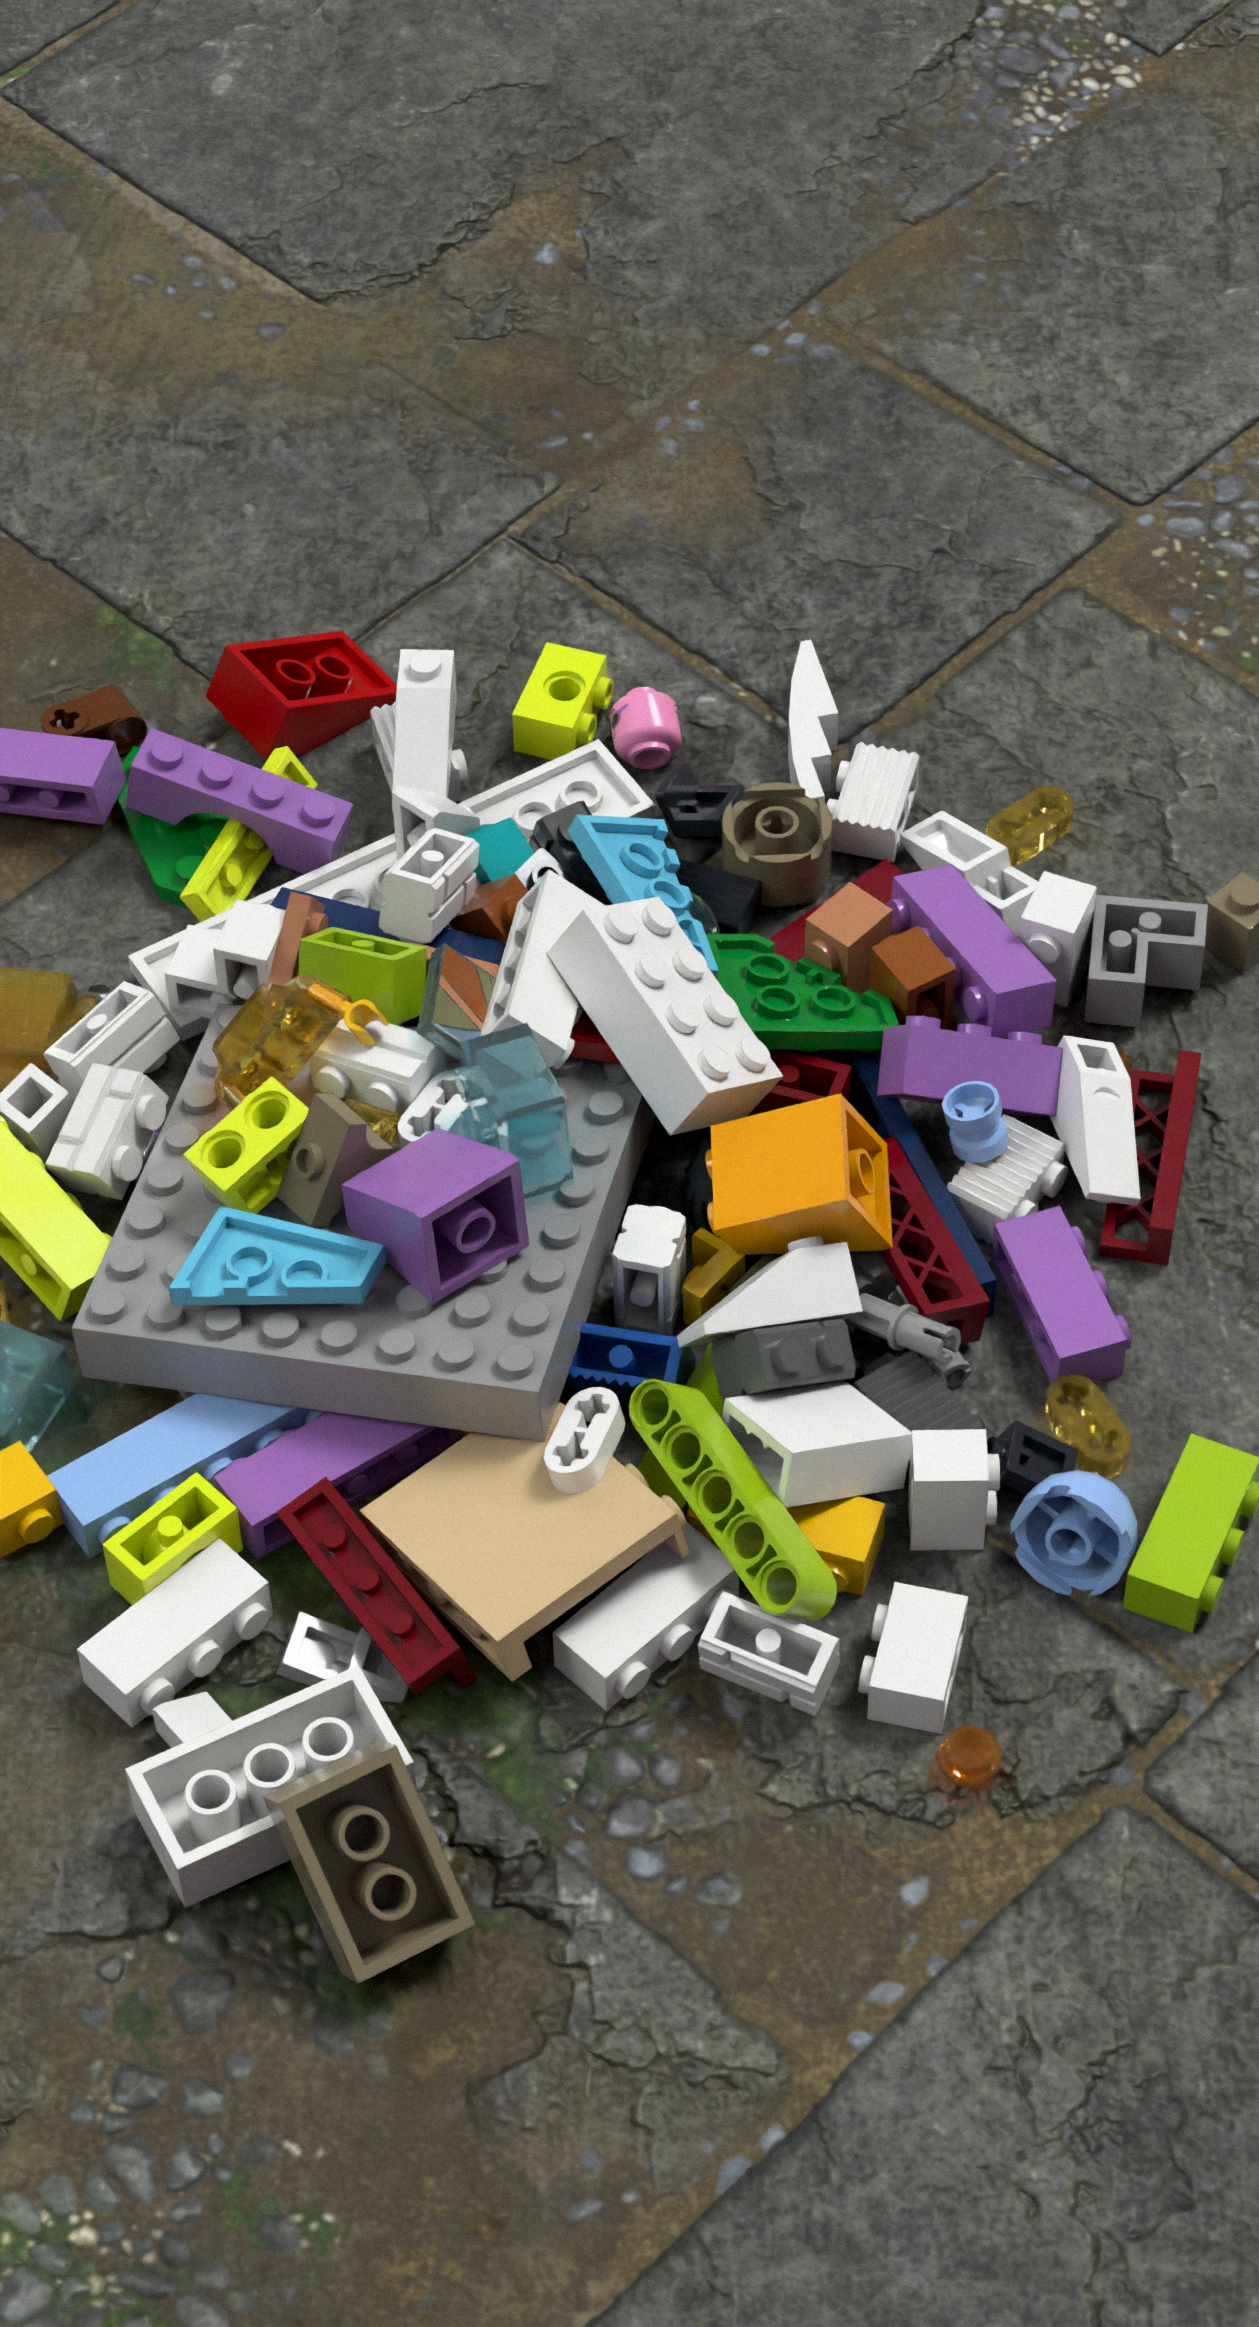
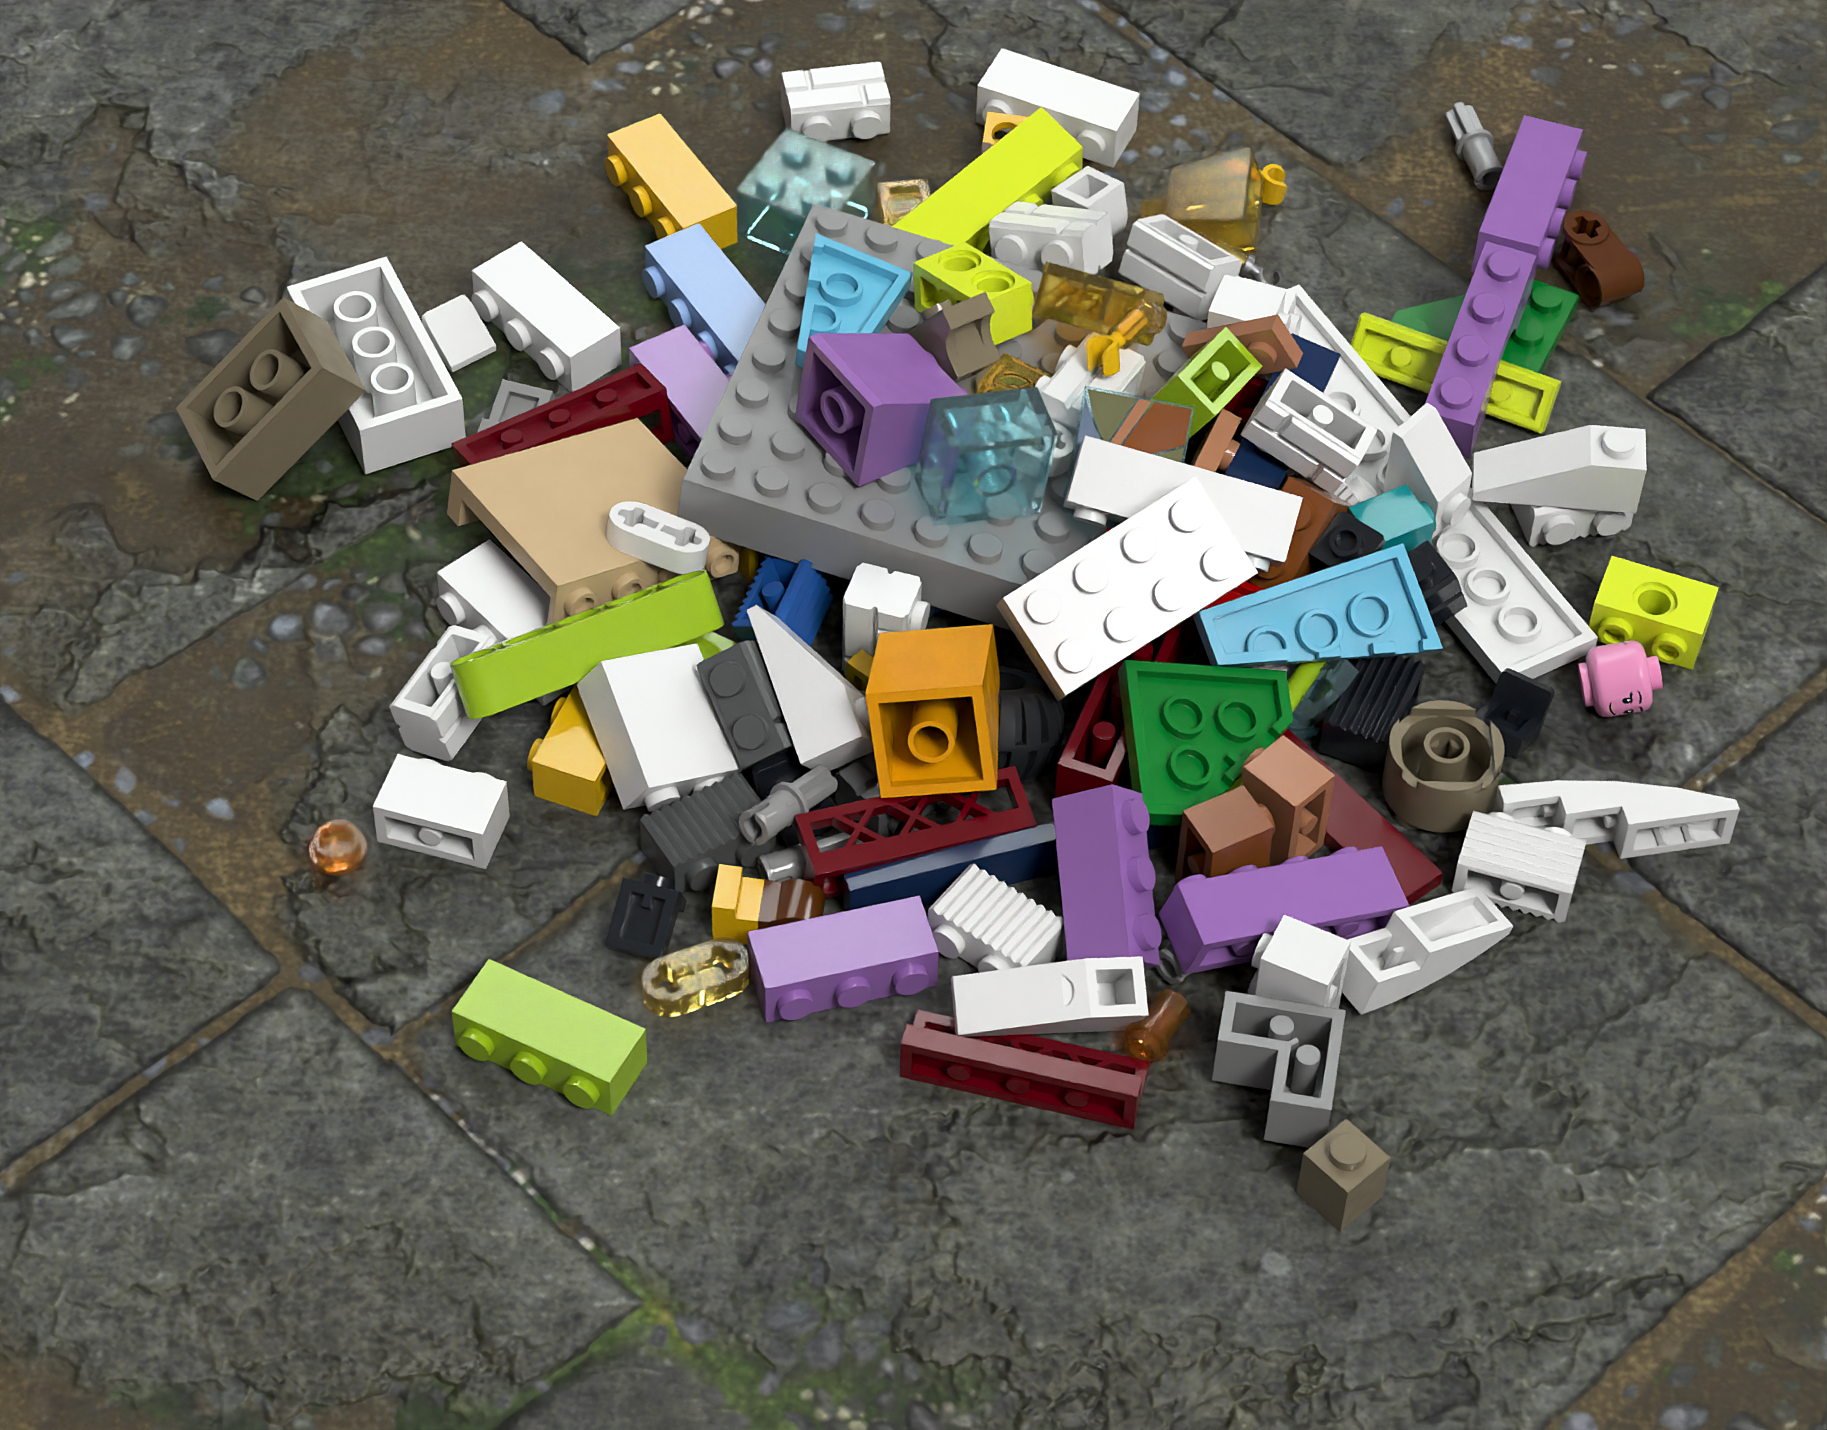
camera: 90 degrees right, 0 degrees up
(170, 1537) = (624, 296): neon yellow brick -> none
(297, 690) = (1662, 390): red slope -> none
(951, 1489) = (602, 828): white brick -> none
(975, 1121) = (1030, 872): light blue wheel -> none
(1005, 1368) = (756, 904): none -> leg
(1034, 830) = (1496, 1013): clear yellow beam -> none
(1075, 1532) = (562, 936): light blue cylinder -> none

